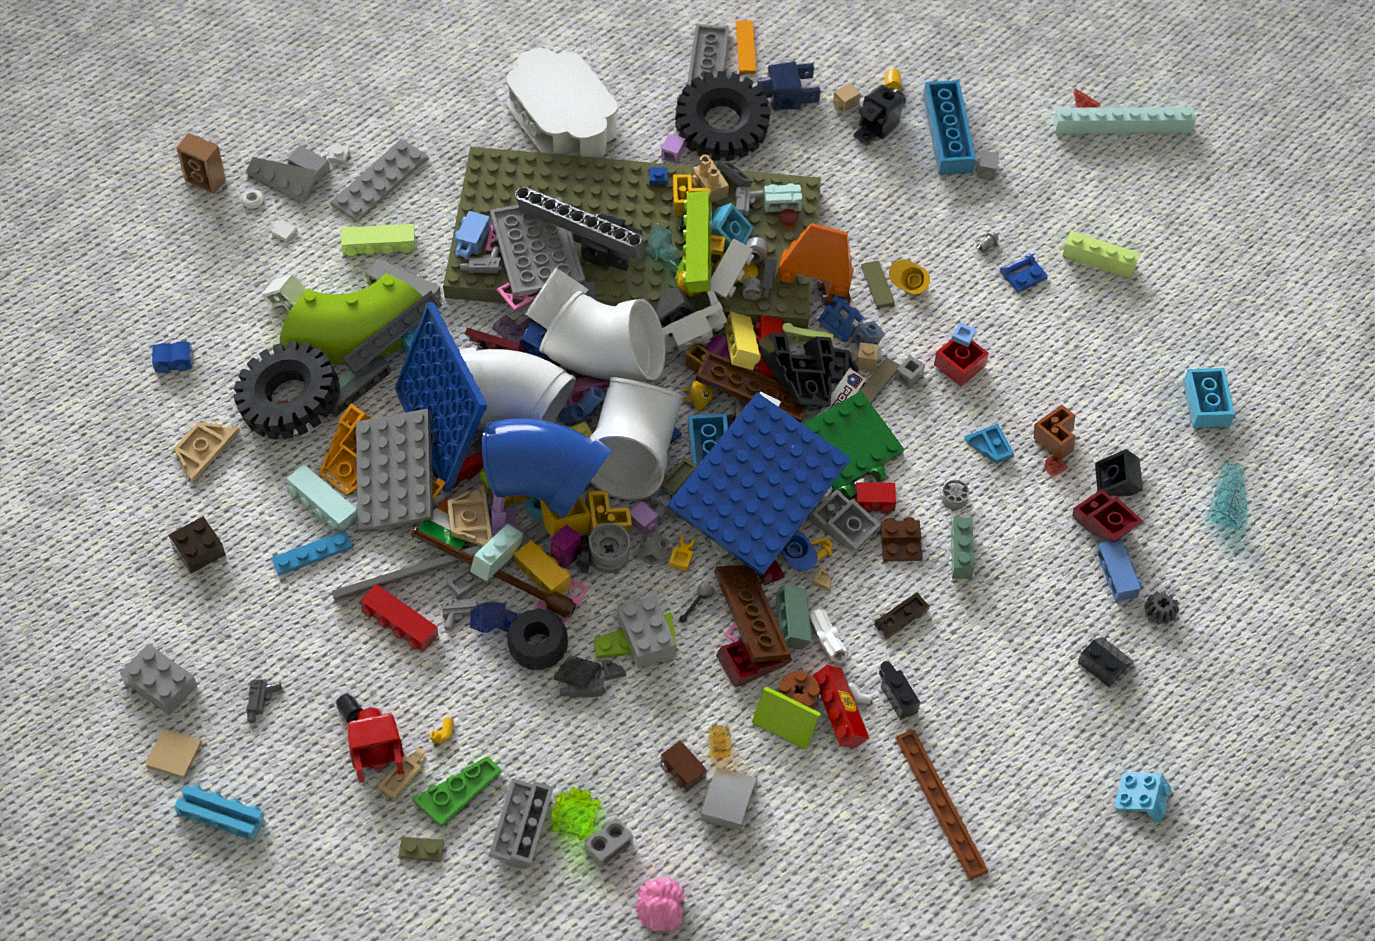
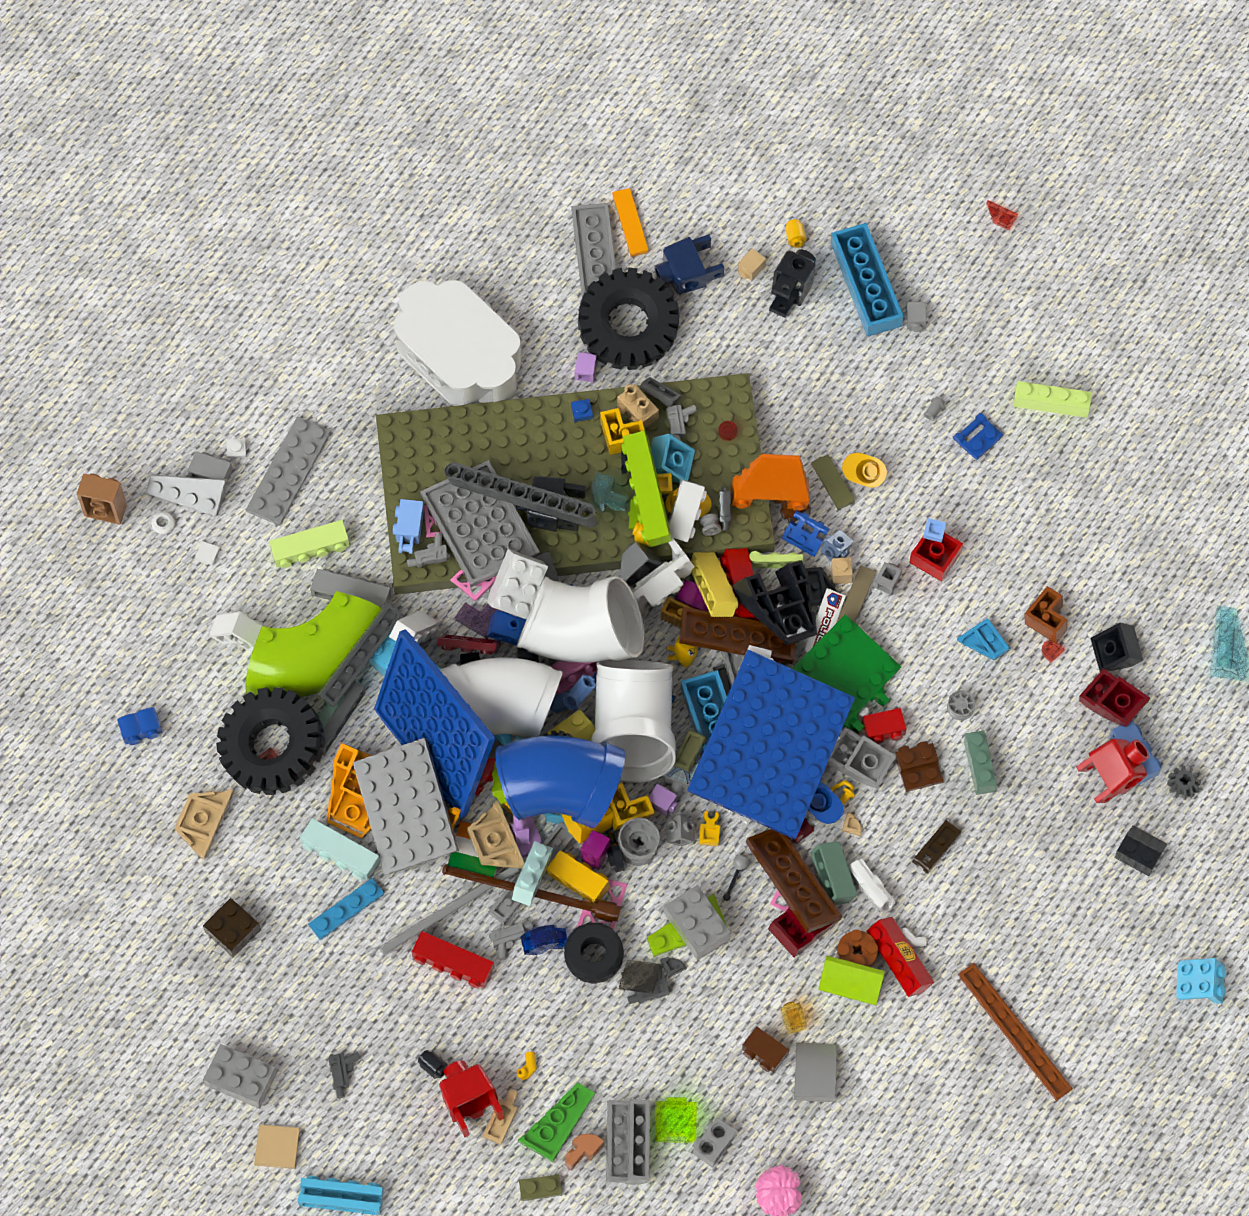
camera: 10 degrees left, 10 degrees up
(456, 322) = (419, 625): none -> white brick
(478, 818) = (585, 1145): none -> nougat brick
(760, 249) = (705, 476): light grey head -> none
(782, 197) = (716, 410): light aqua brick -> none
(898, 691) = (950, 927): black hinge -> none
(1099, 575) = (1118, 765): none -> piece
(1124, 120) = (1046, 230): light aqua brick -> none
(1208, 398) = (1189, 543): medium azure brick -> none

